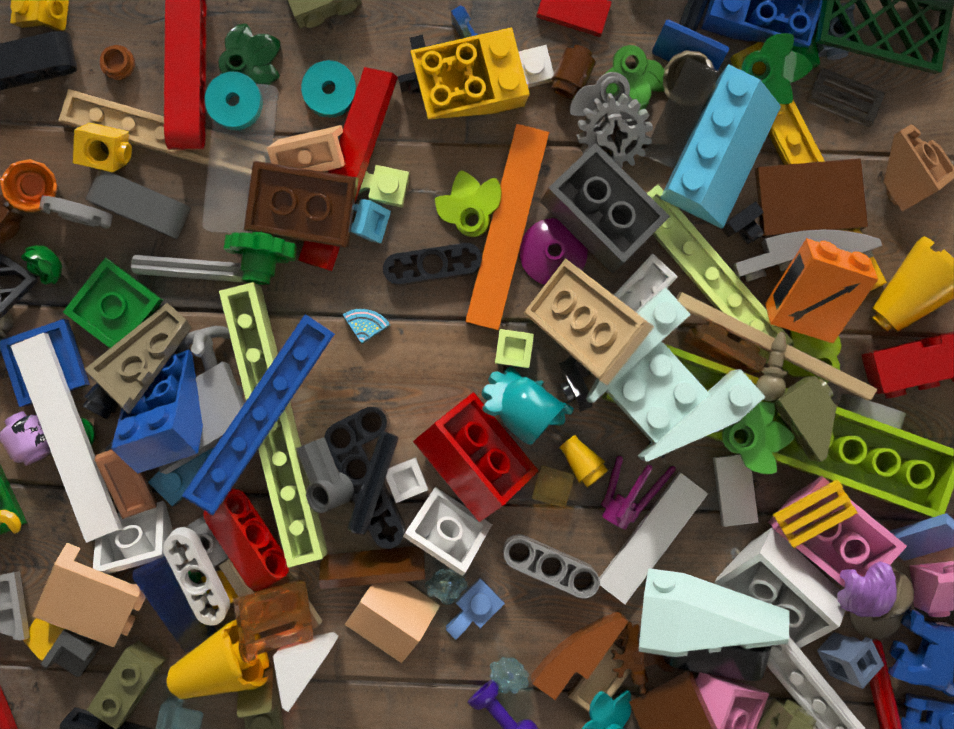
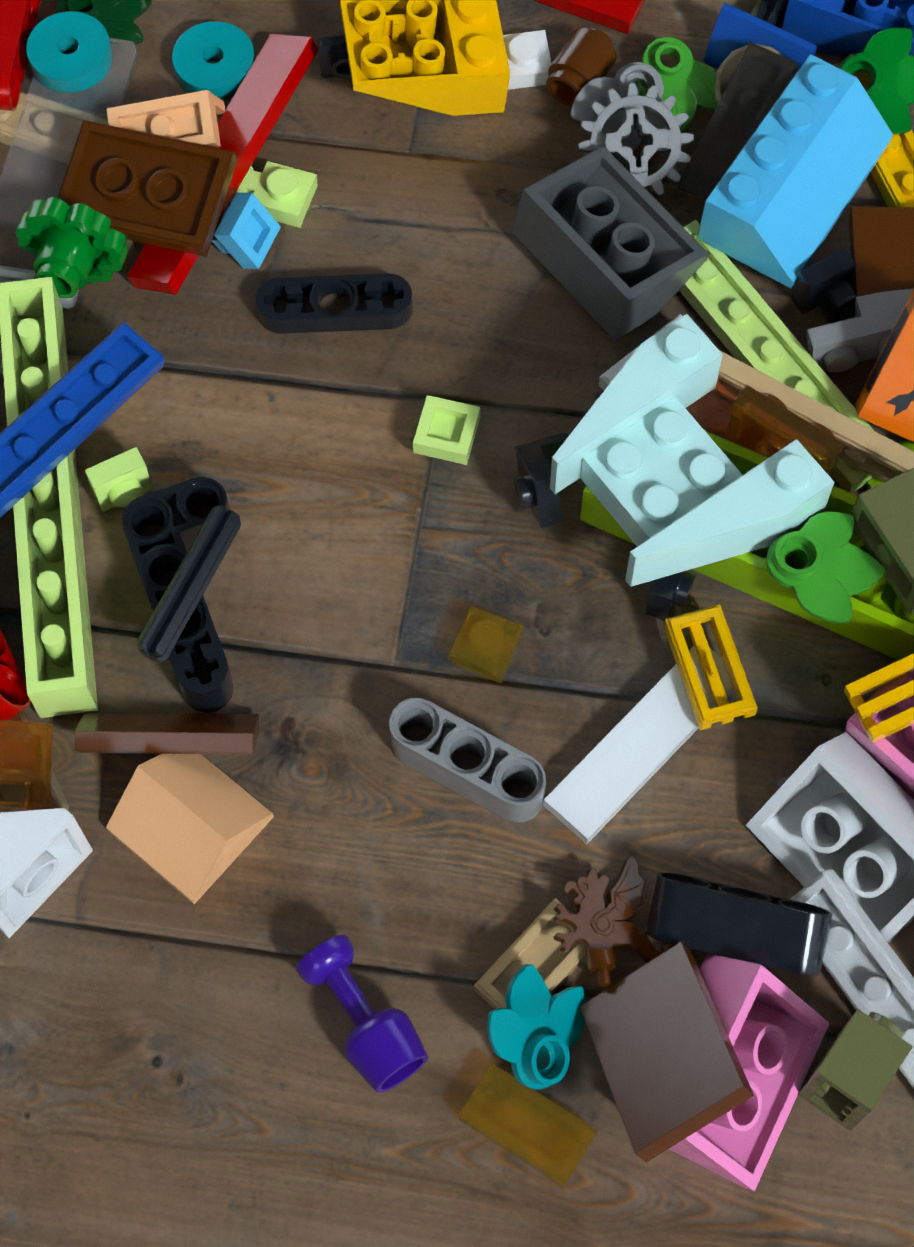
camera: 10 degrees right, 20 degrees down
(318, 407) = (119, 480): none -> yellowish green plate
(327, 486) = (111, 574): dark grey piece -> none
(365, 323) = (218, 375): medium azure tile -> none
(406, 480) = (244, 605): white plate -> none
(446, 585) = (287, 773): clear light blue plant -> none
(447, 531) = (299, 691): white slope -> none
(469, 199) = (401, 223): lime plate -> none
(476, 457) = (362, 579): red slope -> none
(477, 605) = (333, 818): medium blue plate -> none
(507, 227) = (455, 268): orange tile -> none
(509, 675) = (375, 933): clear light blue plant -> none
(522, 405) = (449, 504): teal piece -> none
(535, 245) = (519, 326): magenta dish -> none
(578, 654) = (496, 908): dark orange slope -> none
(583, 461) = (542, 609): yellow cone -> none
(588, 321) = (564, 369): tan tile -> none
(623, 509) = (594, 687): magenta plant -> none
(697, 615) = (685, 835): light aqua wedge -> none
(702, 489) = (723, 710): none -> yellow tile
(735, 491) = (790, 679): white tile -> none
(772, 382) = (854, 468): dark tan bar -> none

